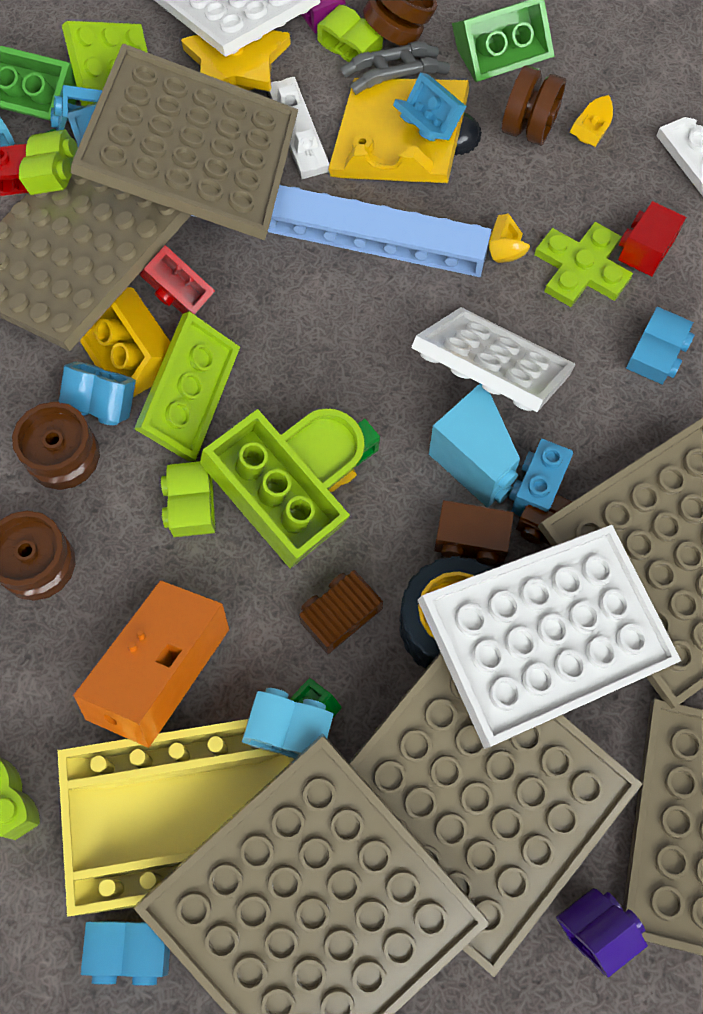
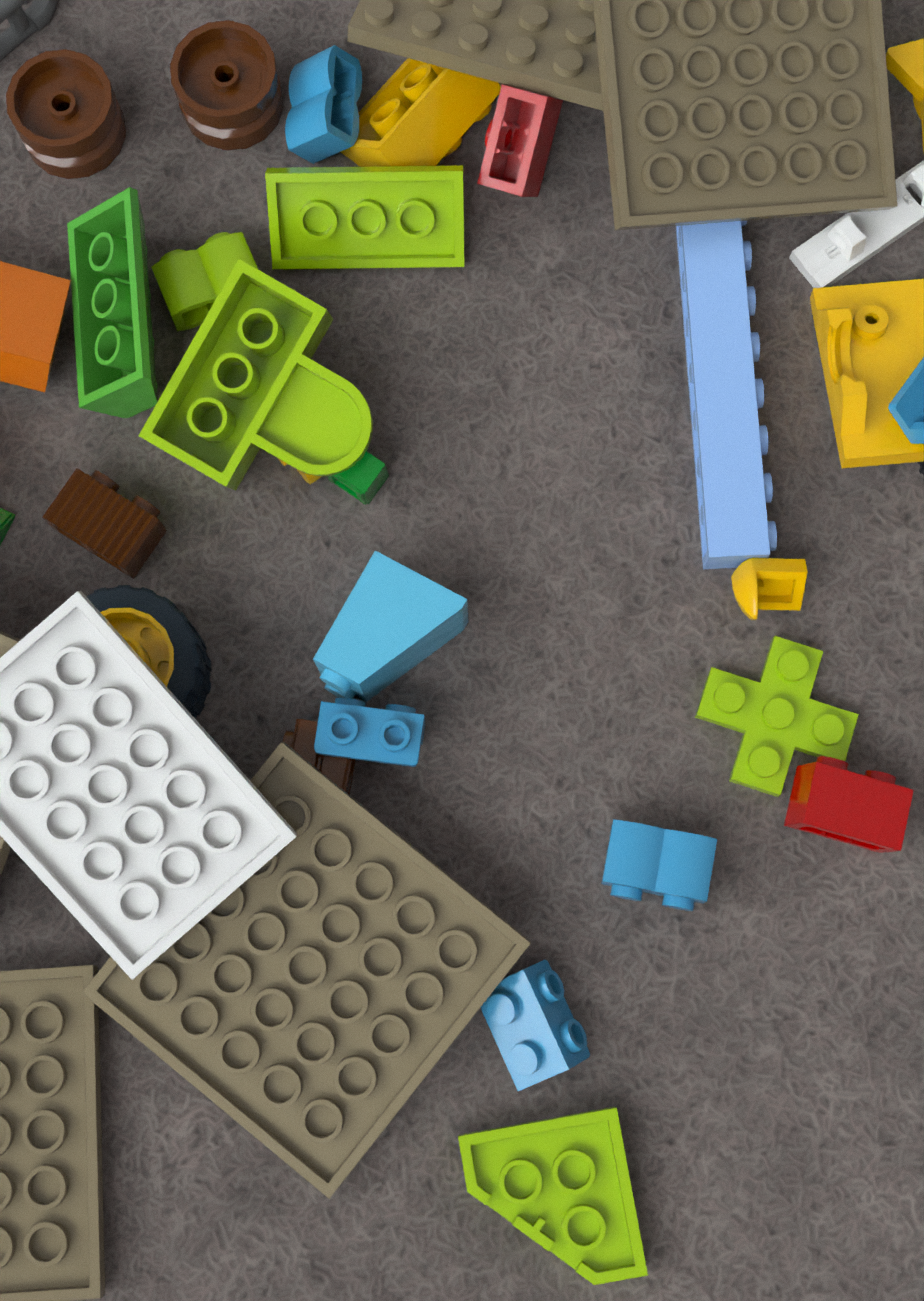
camera: 75 degrees right, 10 degrees up
(191, 553) = (112, 308): none -> bright green slope
(474, 532) = (261, 662): reddish brown brick -> none
(494, 358) = (528, 613): white plate -> none

